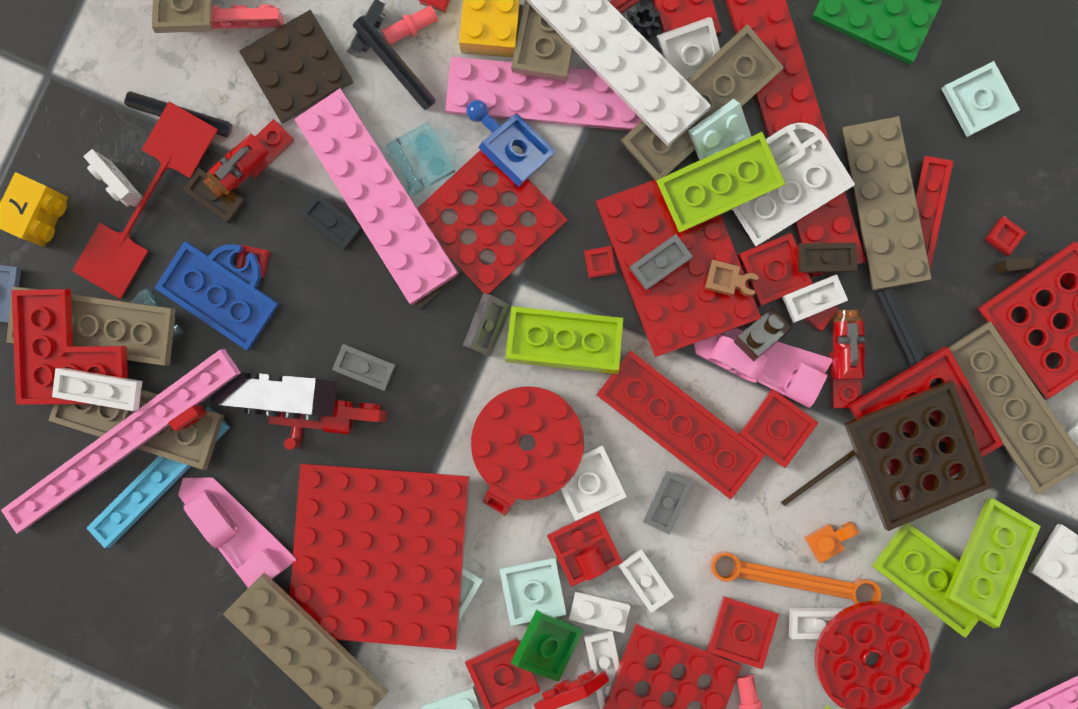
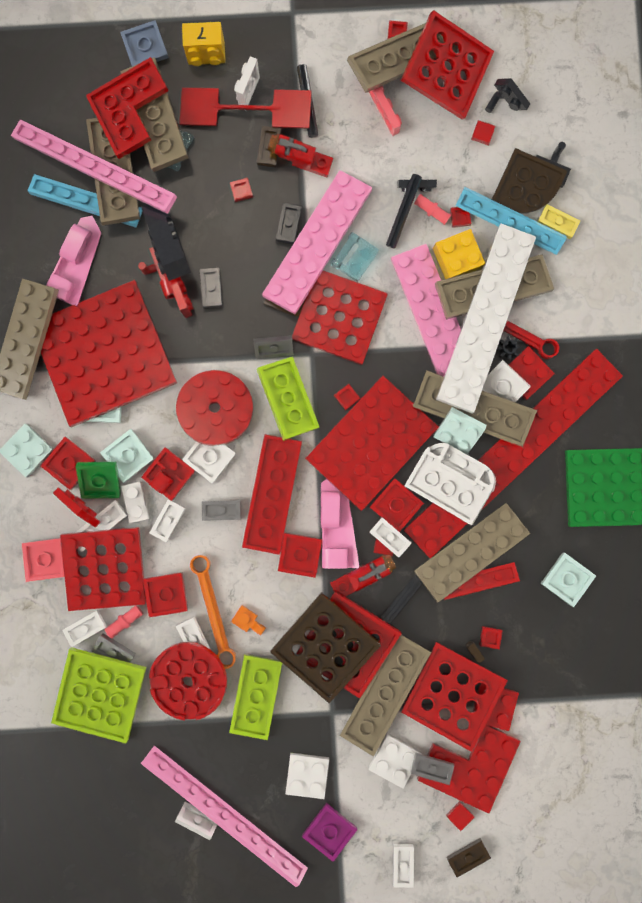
camera: 60 degrees right, 0 degrees up
(97, 389) = (116, 135): white plate -> none
(188, 418) = (126, 197): red tile -> none
(220, 291) = (213, 179): blue plate -> none
(296, 66) = (372, 155): dark brown plate -> none
(499, 499) = (171, 407): red tile -> none
(511, 133) = (399, 304): plate -> none
(660, 262) = (363, 431): flat silver plate -> none
(721, 182) = (430, 443): lime plate -> none
(725, 278) = (373, 475): medium nougat plate -> none
(763, 334) = (352, 516): plate -> none
(816, 479) = (281, 594): dark brown axle -> none
(826, 257) = (418, 531): dark brown plate -> none
(992, 563) = (282, 726): lime plate -> none

